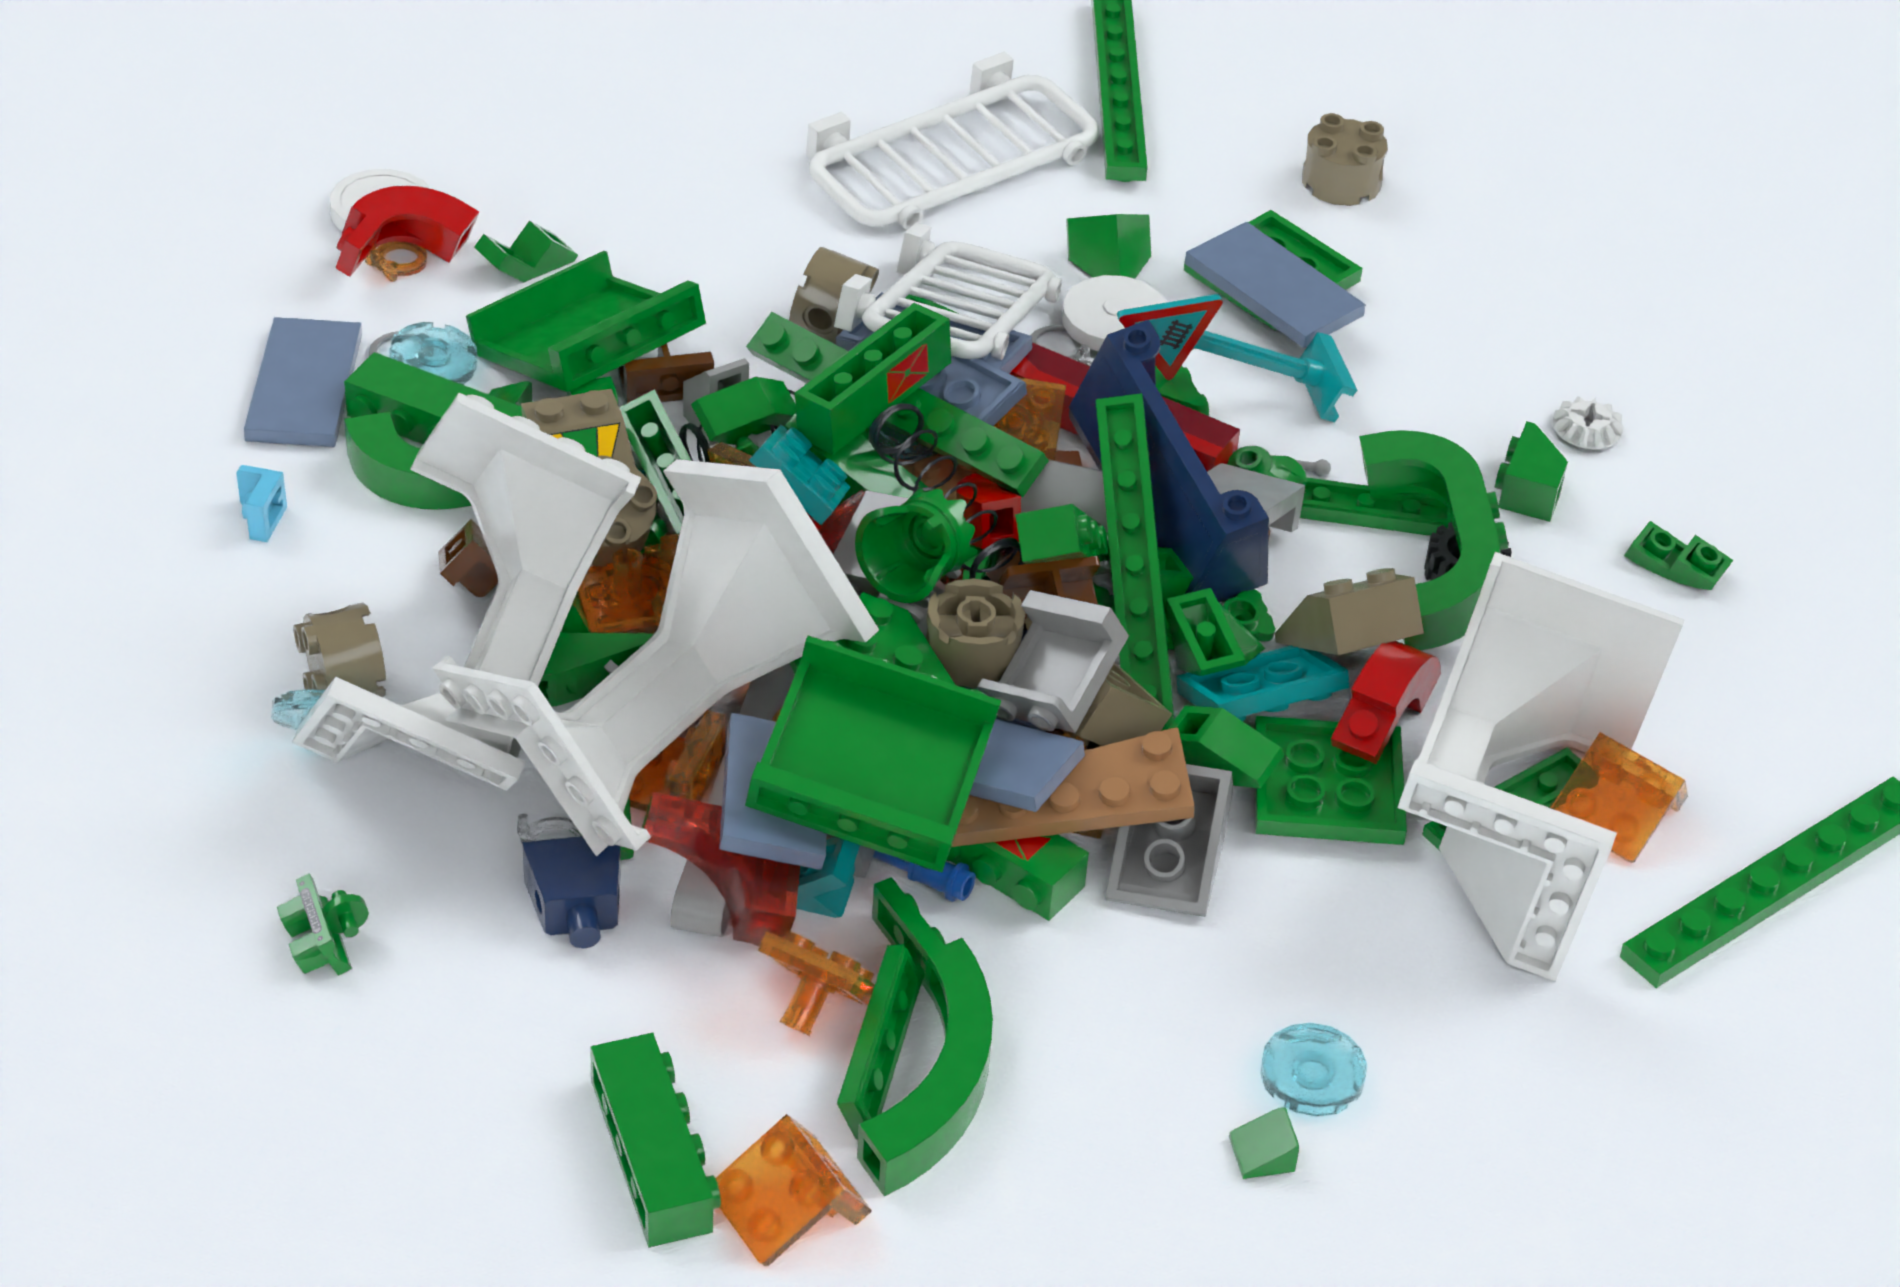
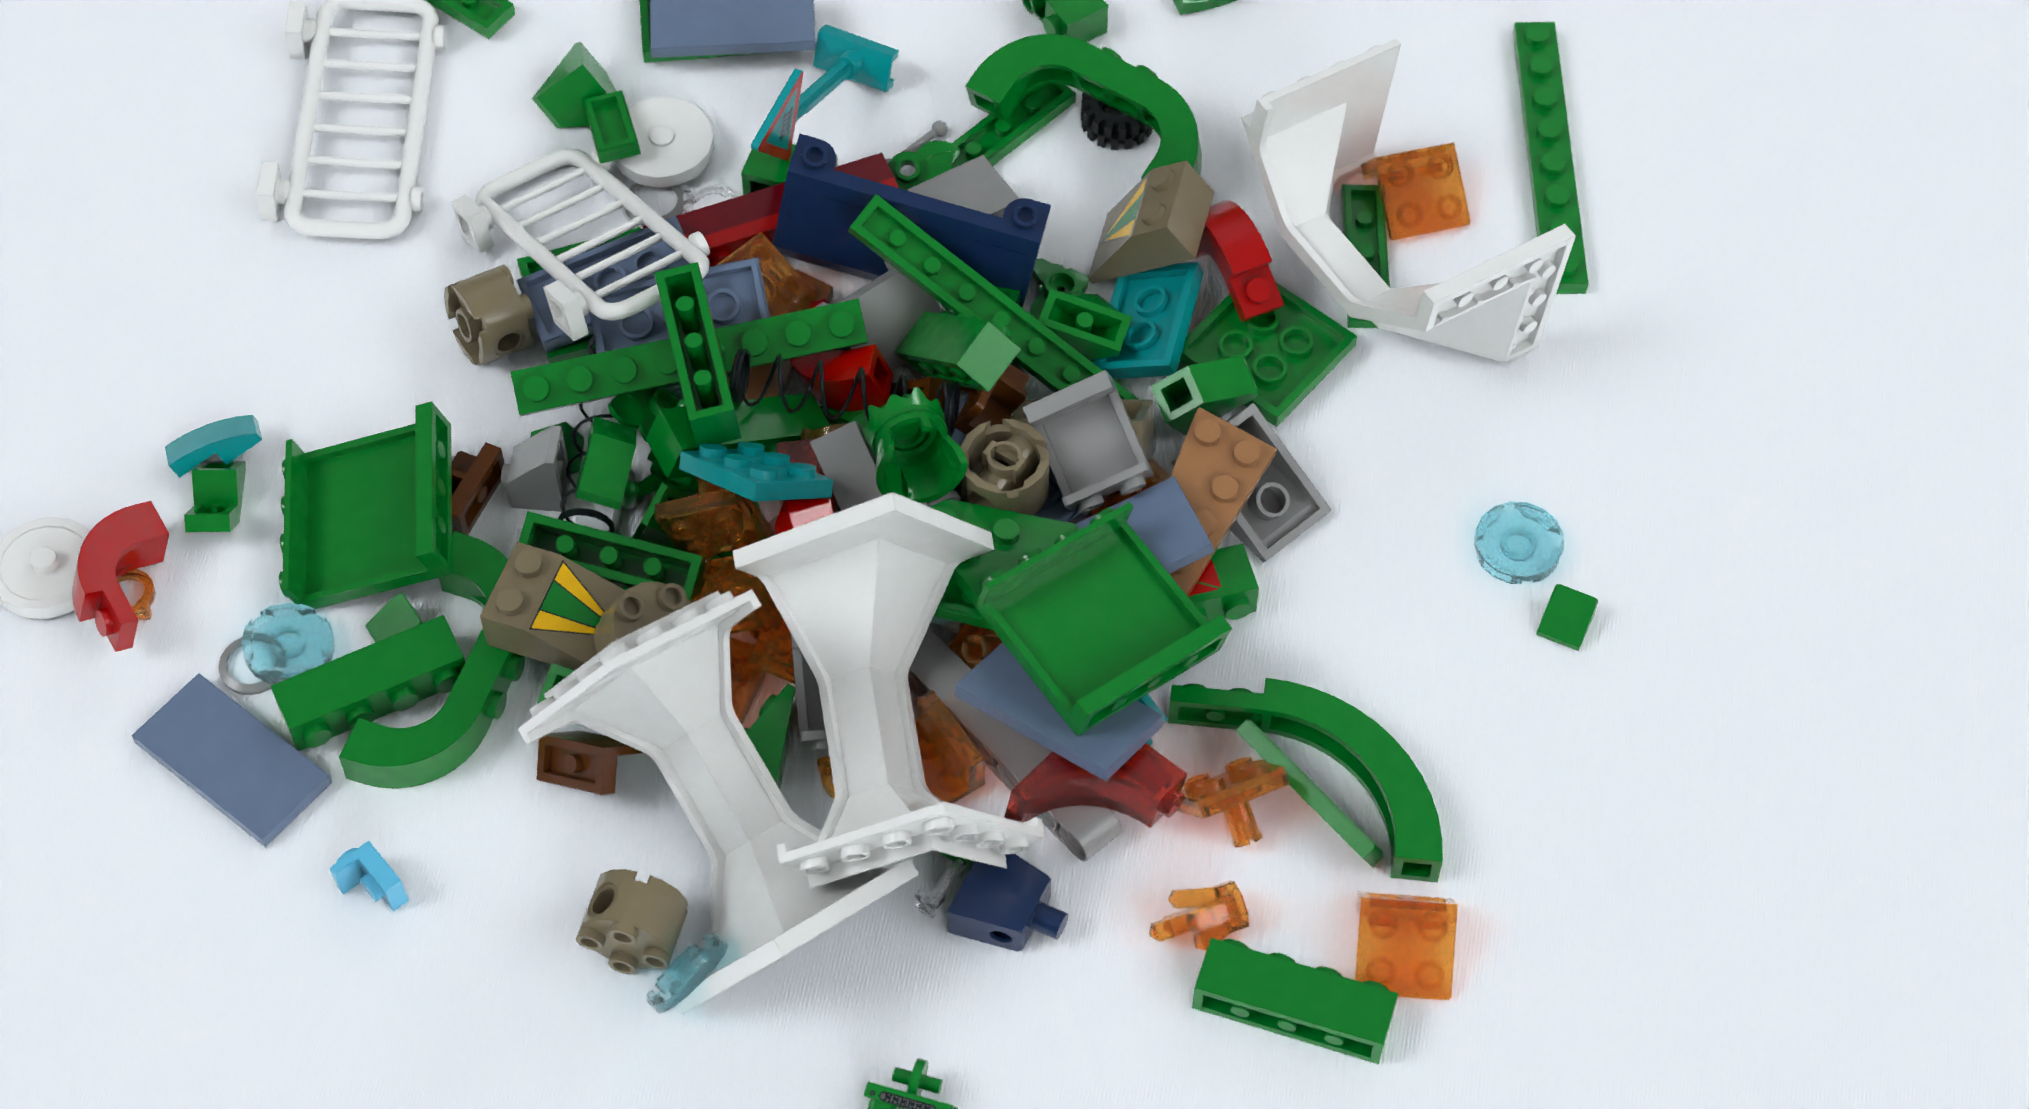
camera: 50 degrees left, 15 degrees up
(573, 224) = (224, 437): none -> teal slope
(697, 1036) = (1209, 912): none -> clear orange rock
(1087, 270) = (611, 127): none -> green tile

